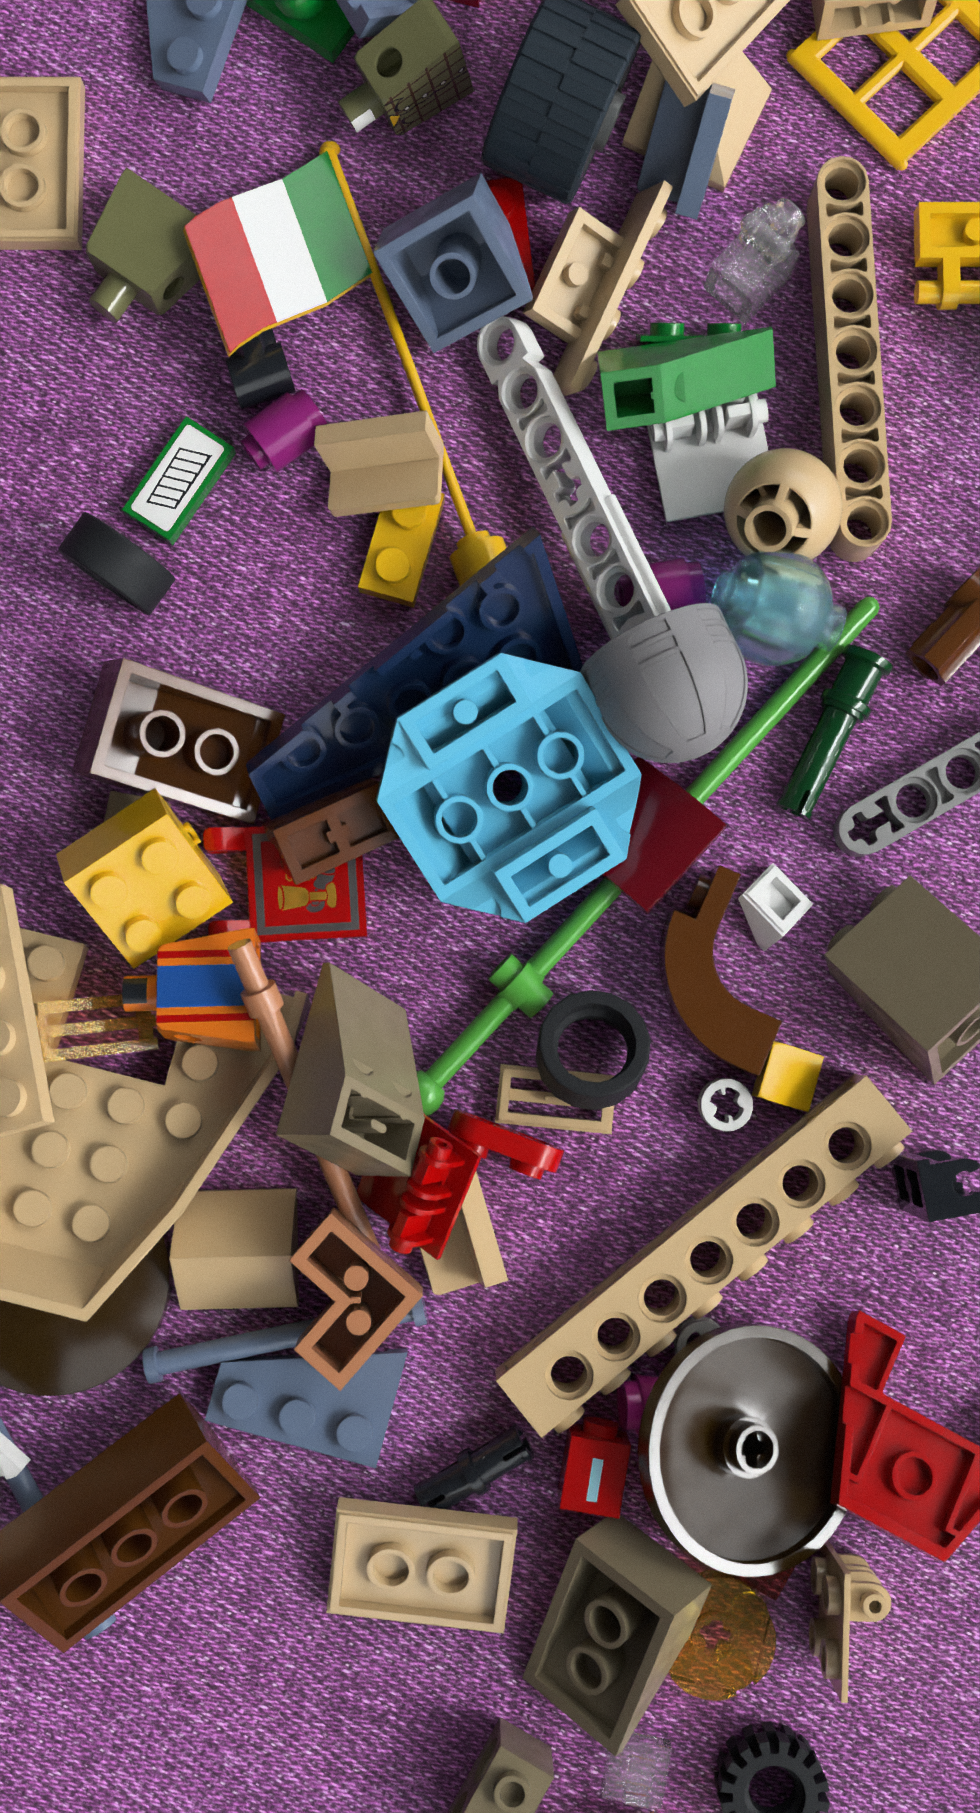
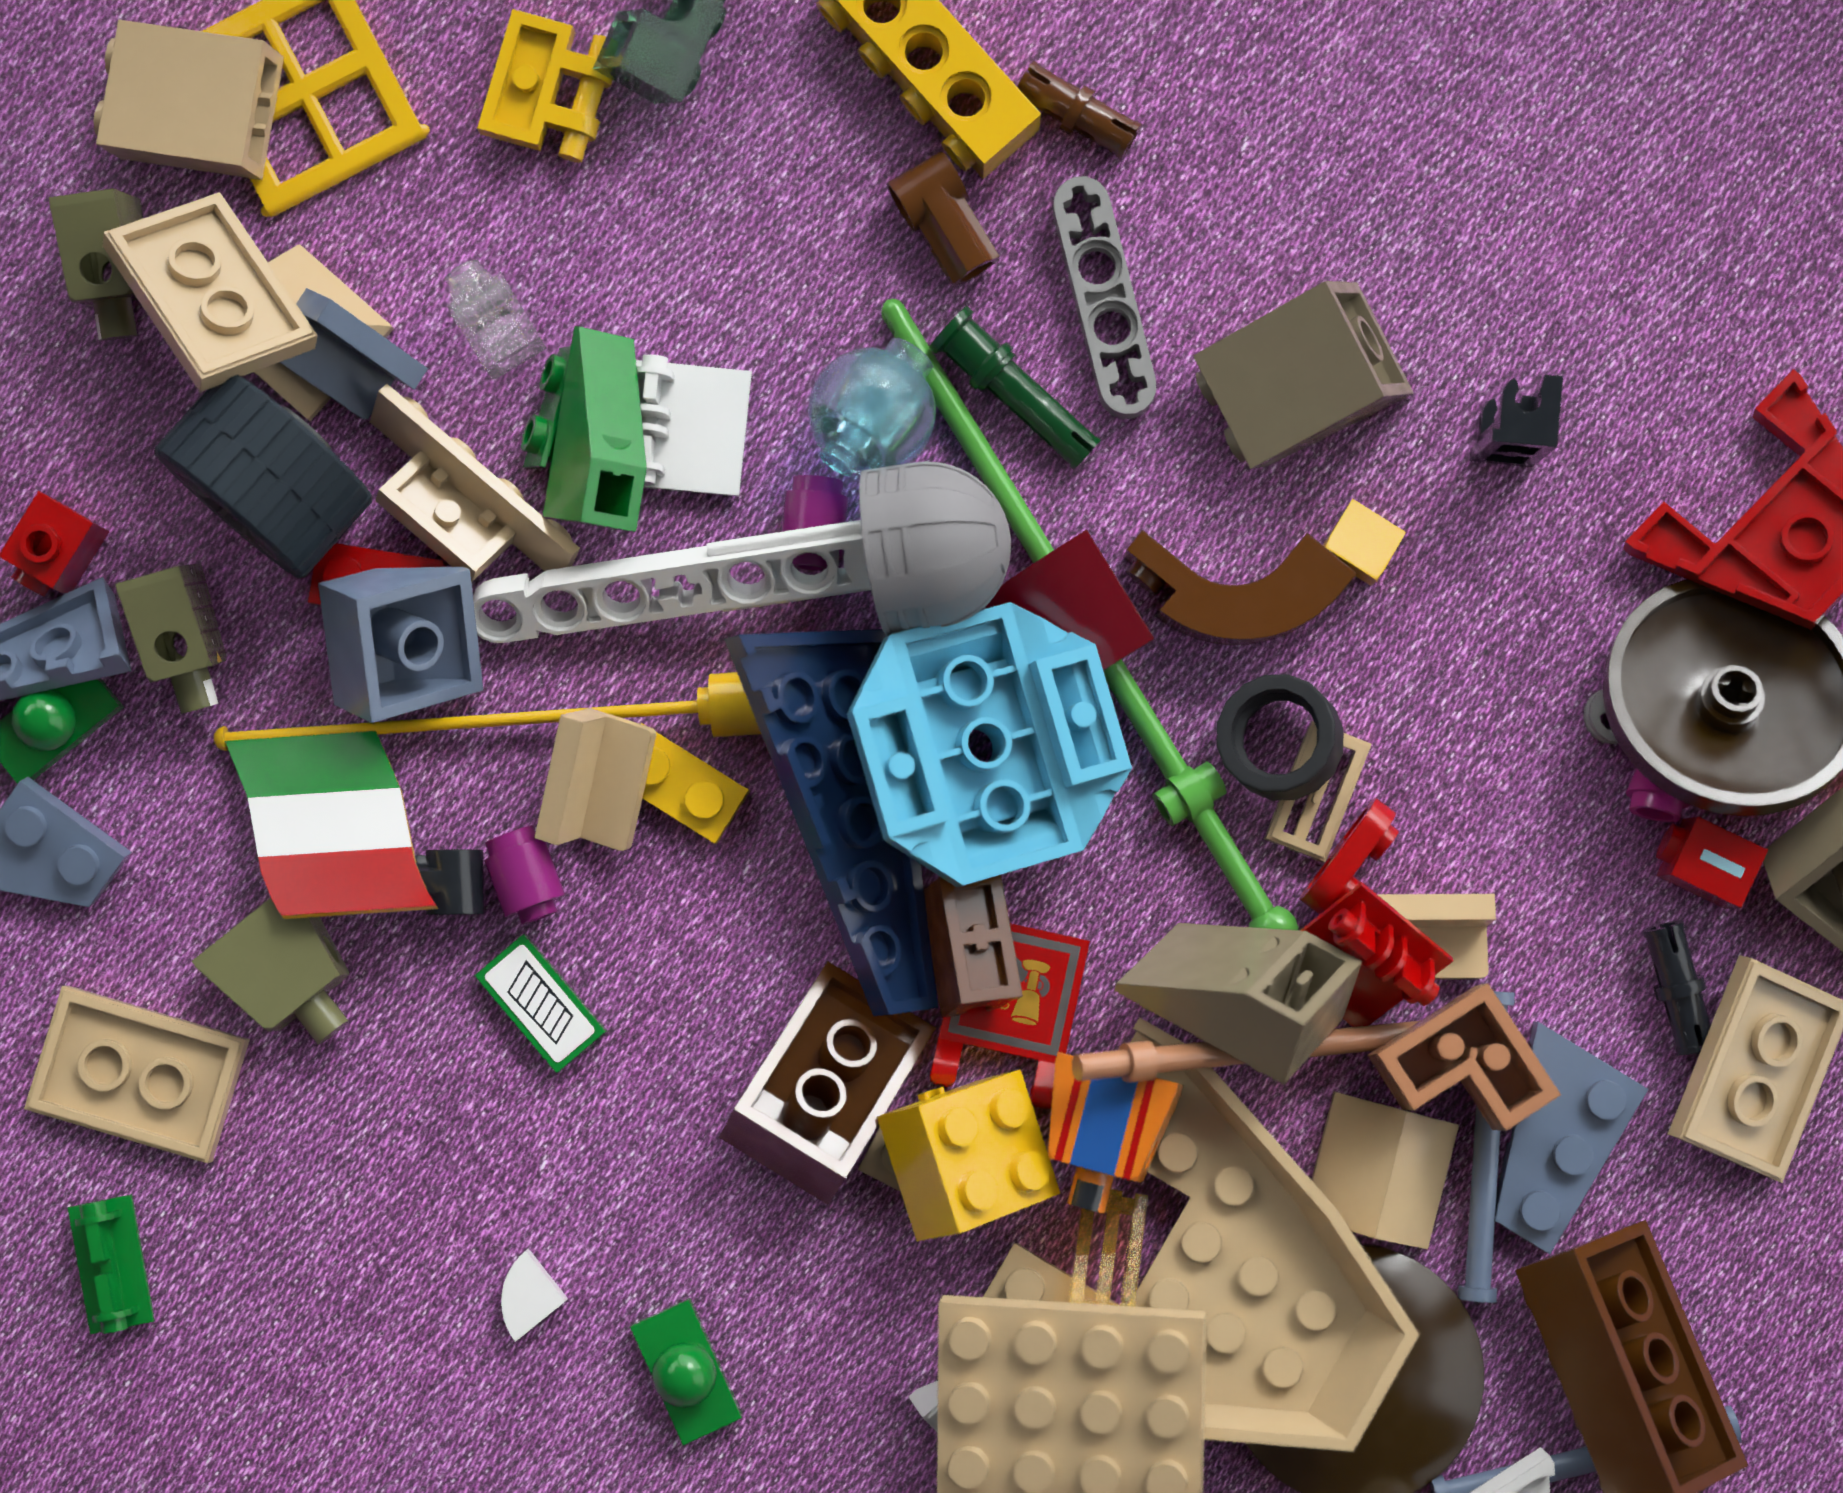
camera: 70 degrees left, 0 degrees up
(116, 563) = (621, 1092): black tyre -> none
(556, 1404) = (1566, 841): tan brick -> none
(742, 1099) = (1372, 597): white bush -> none
(772, 906) = (1180, 504): white slope -> none
(783, 503) = (768, 371): tan brick -> none
(851, 333) = (602, 232): tan beam -> none

